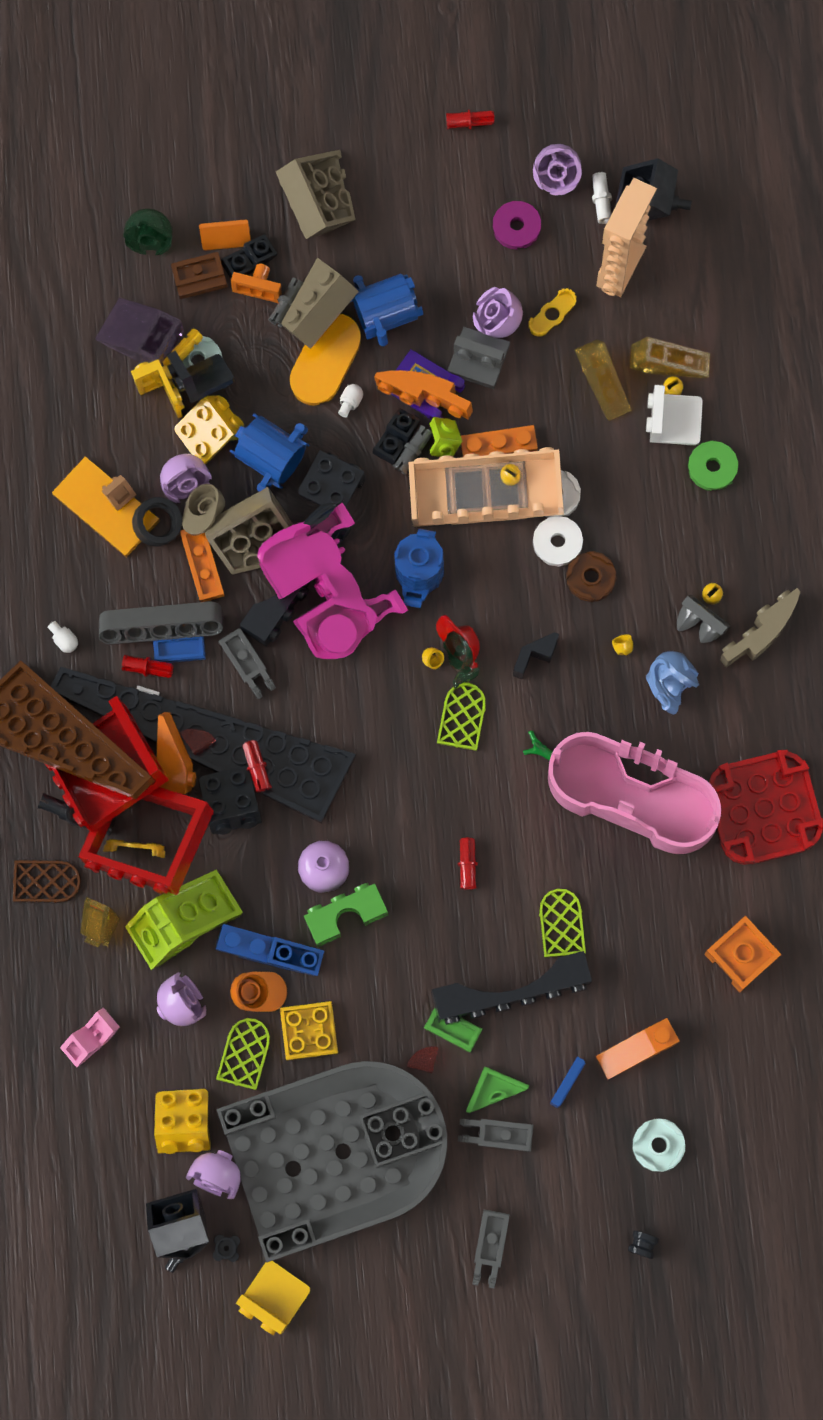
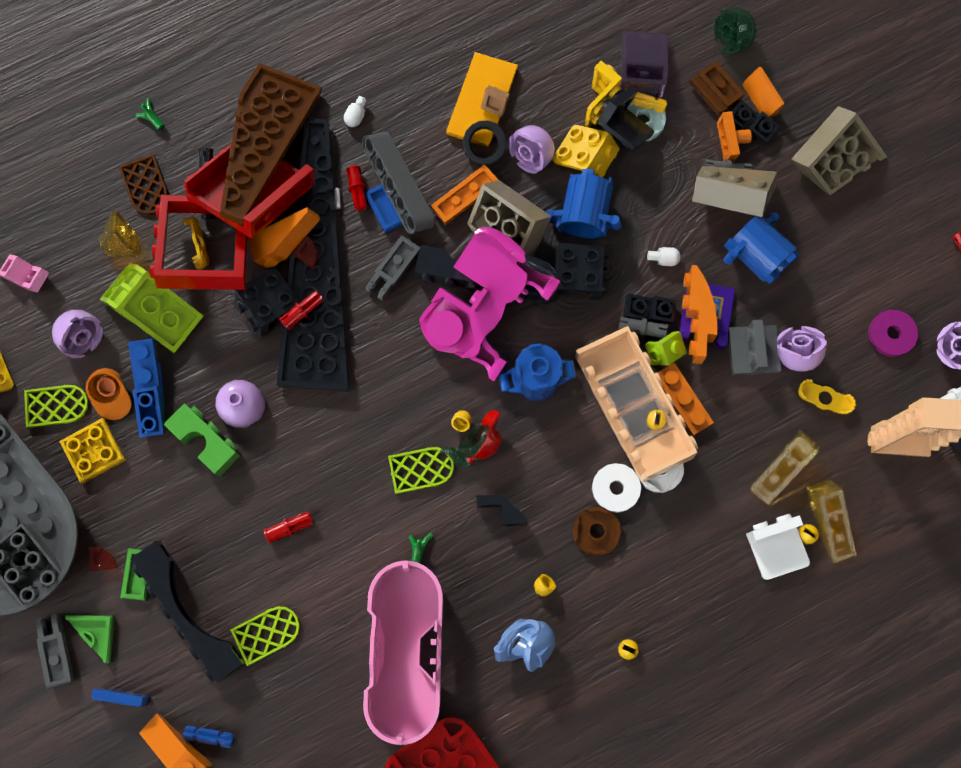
camera: 65 degrees right, 0 degrees up
(202, 508) = (514, 173): dark tan cap -> none
(325, 365) = (690, 223): light orange tile -> none
(637, 1013) = (208, 736): none -> blue axle
(694, 611) = (604, 640): dark grey tile -> none
(716, 452) = (764, 601): bright green tile -> none
(770, 625) = (620, 717): dark tan slope -> none

